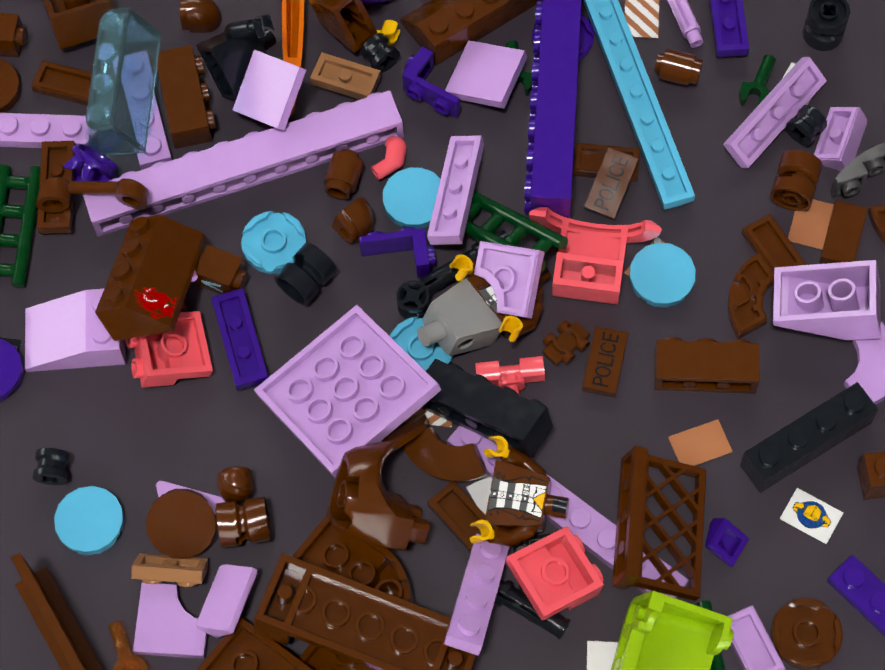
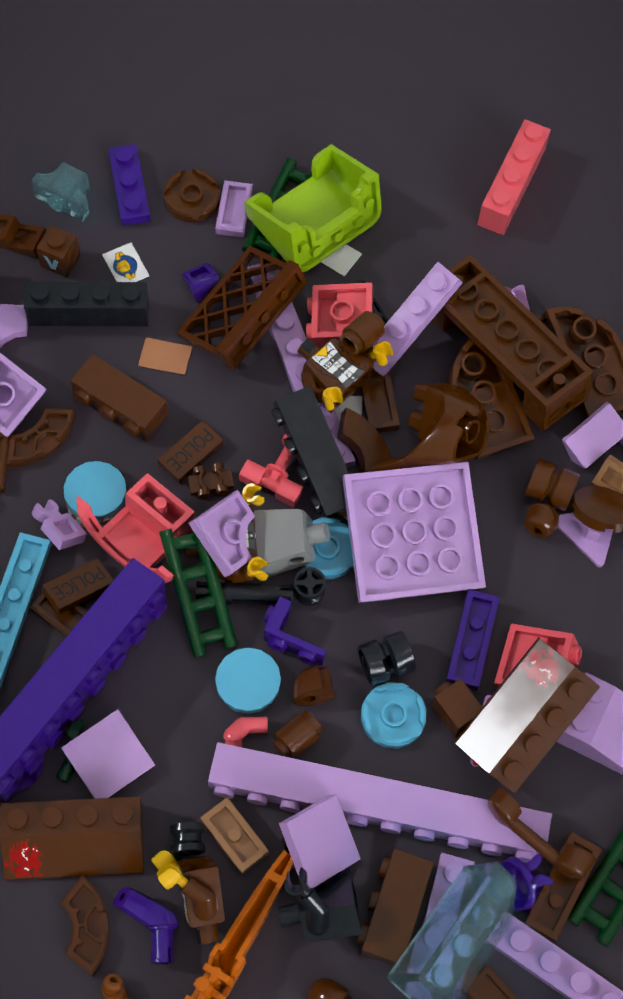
camera: 155 degrees left, 0 degrees up
(416, 87) = (166, 799): dark purple bracket -> none
(455, 190) = (211, 654): lavender plate -> none
(512, 538) = (362, 333): none -> reddish brown brick
(668, 219) = (59, 528): none -> lavender plate

